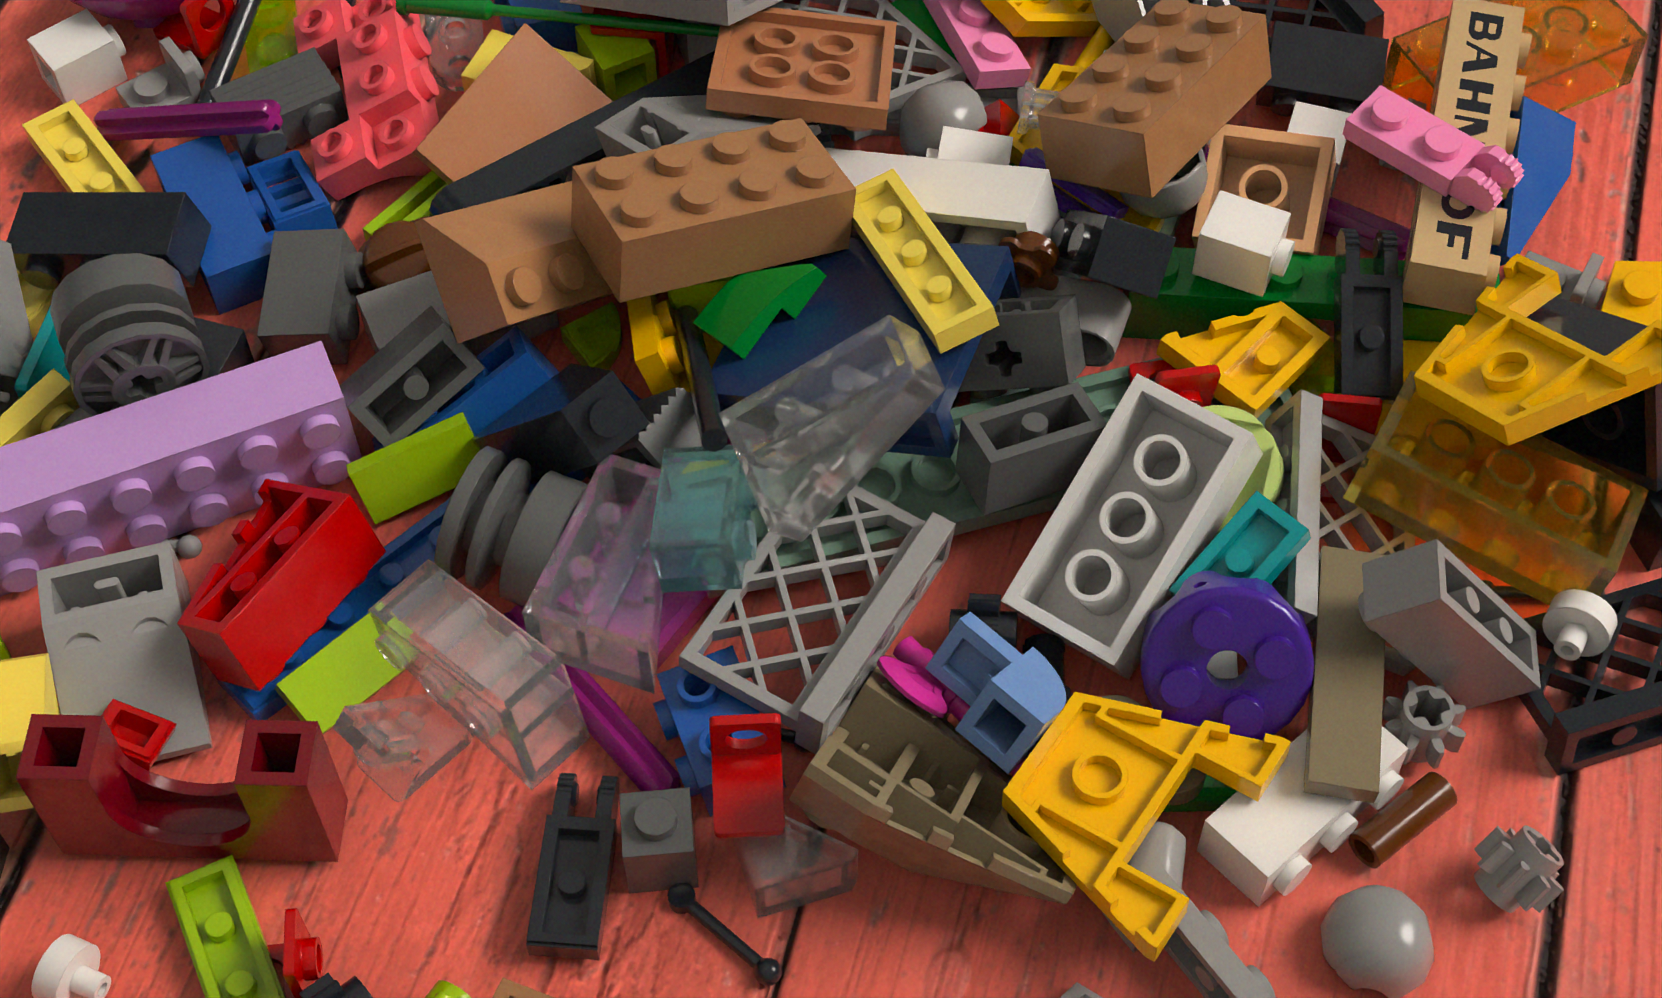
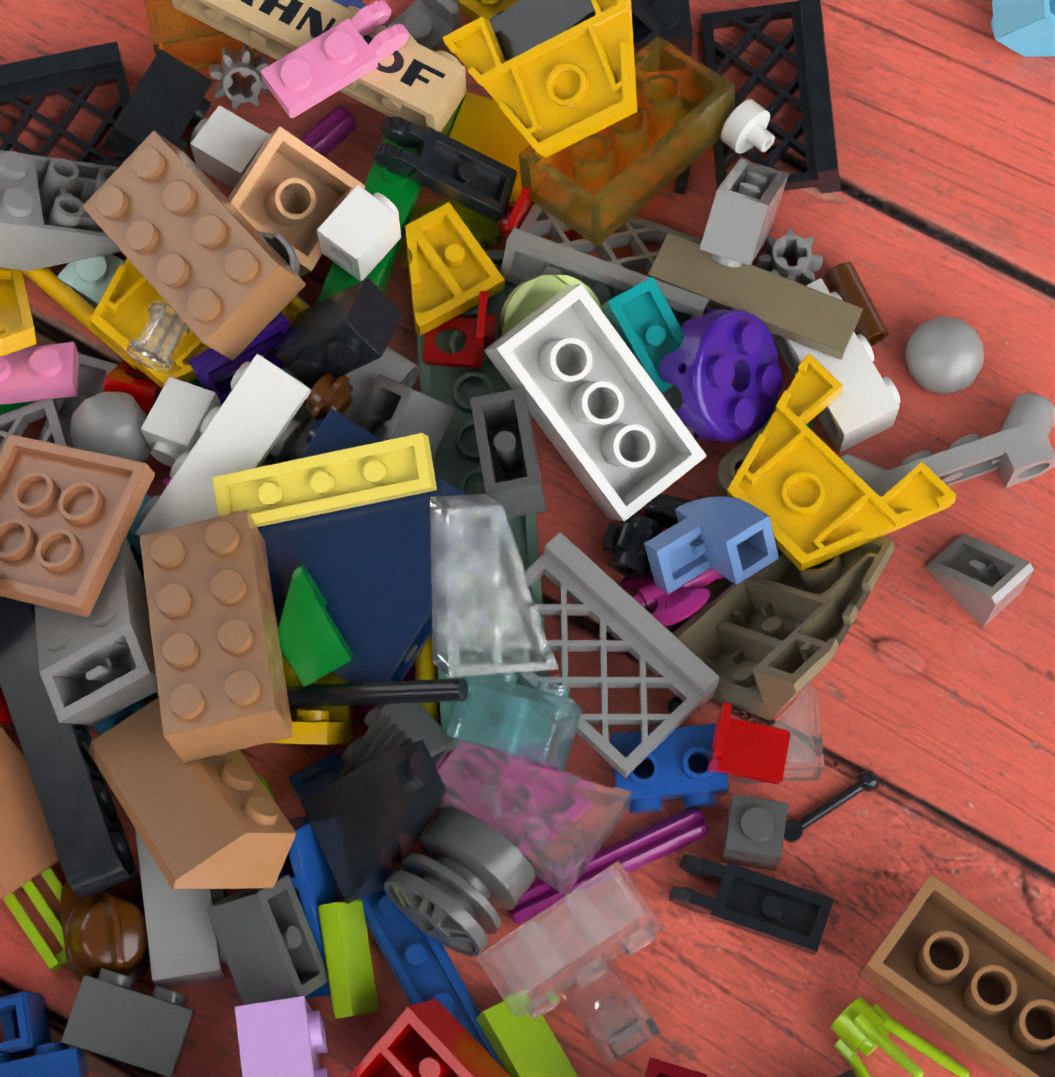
camera: 75 degrees left, 15 degrees up
(1518, 869) = (921, 242): light grey gear -> none

